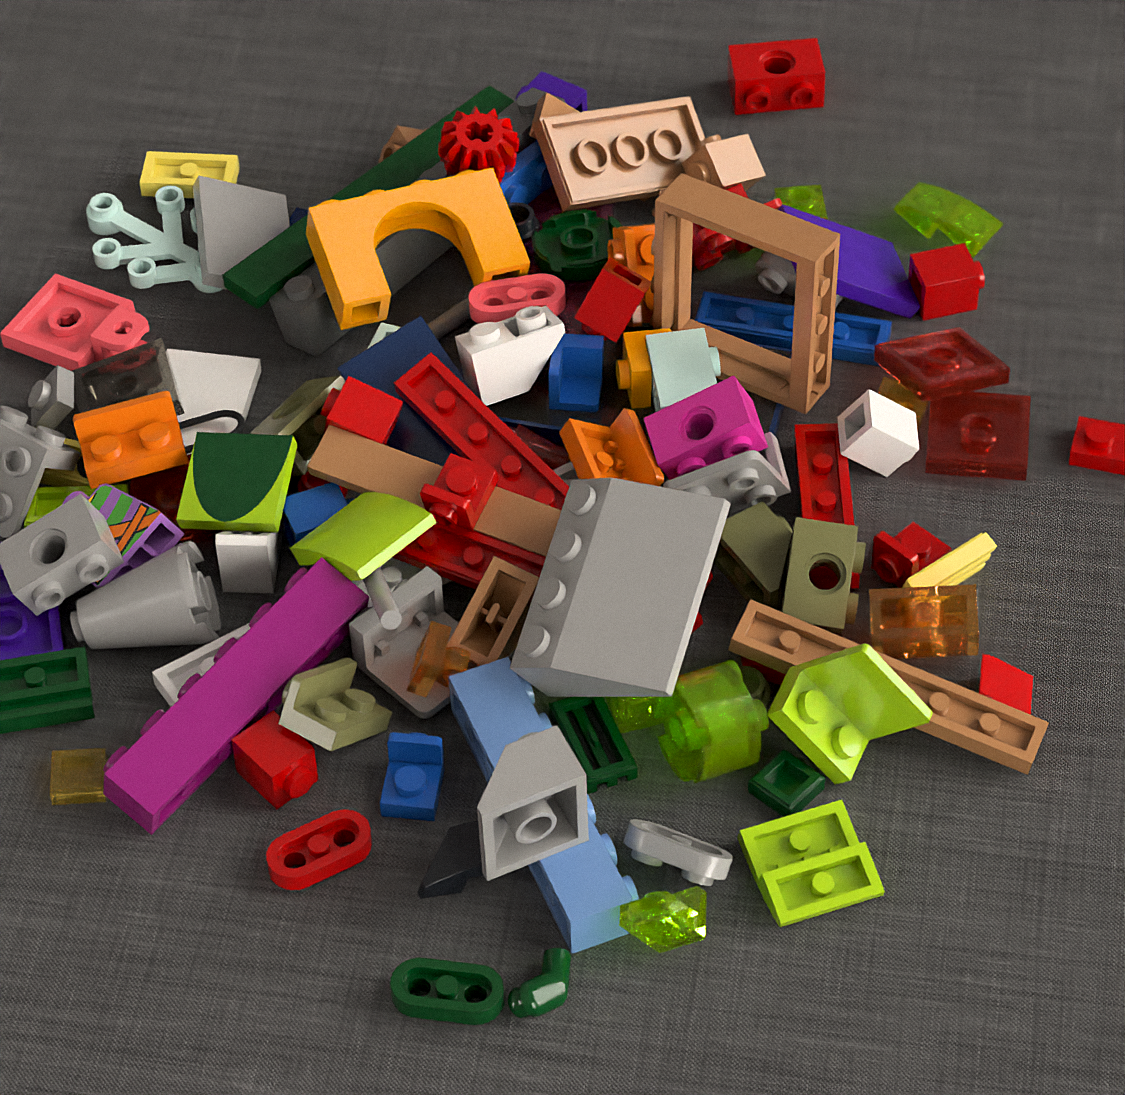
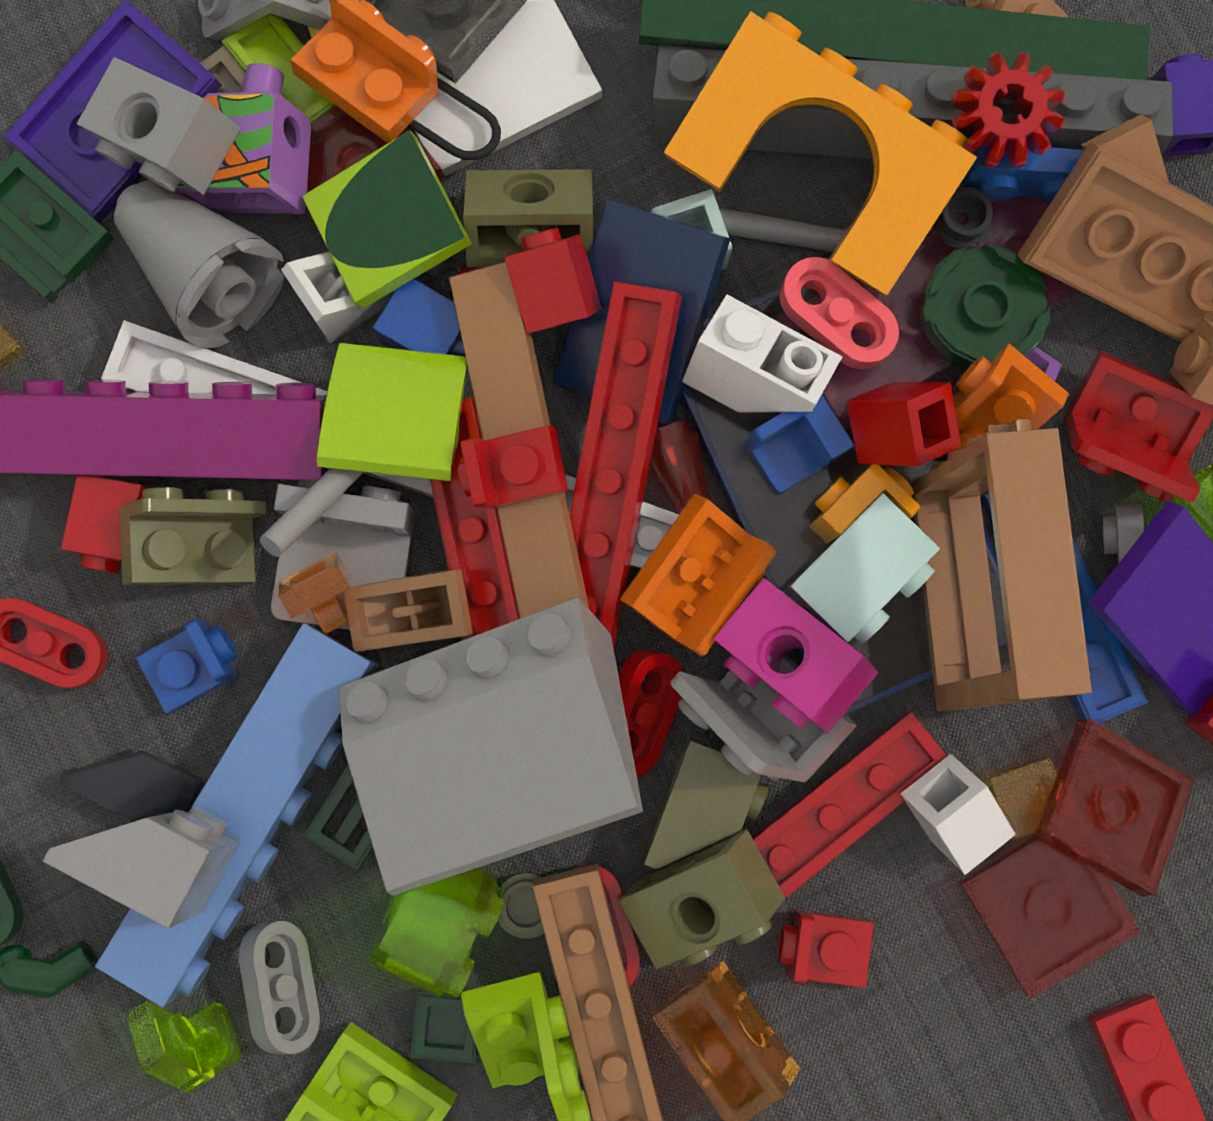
camera: 45 degrees right, 35 degrees up
(955, 565) = (820, 1011): light yellow tile -> none

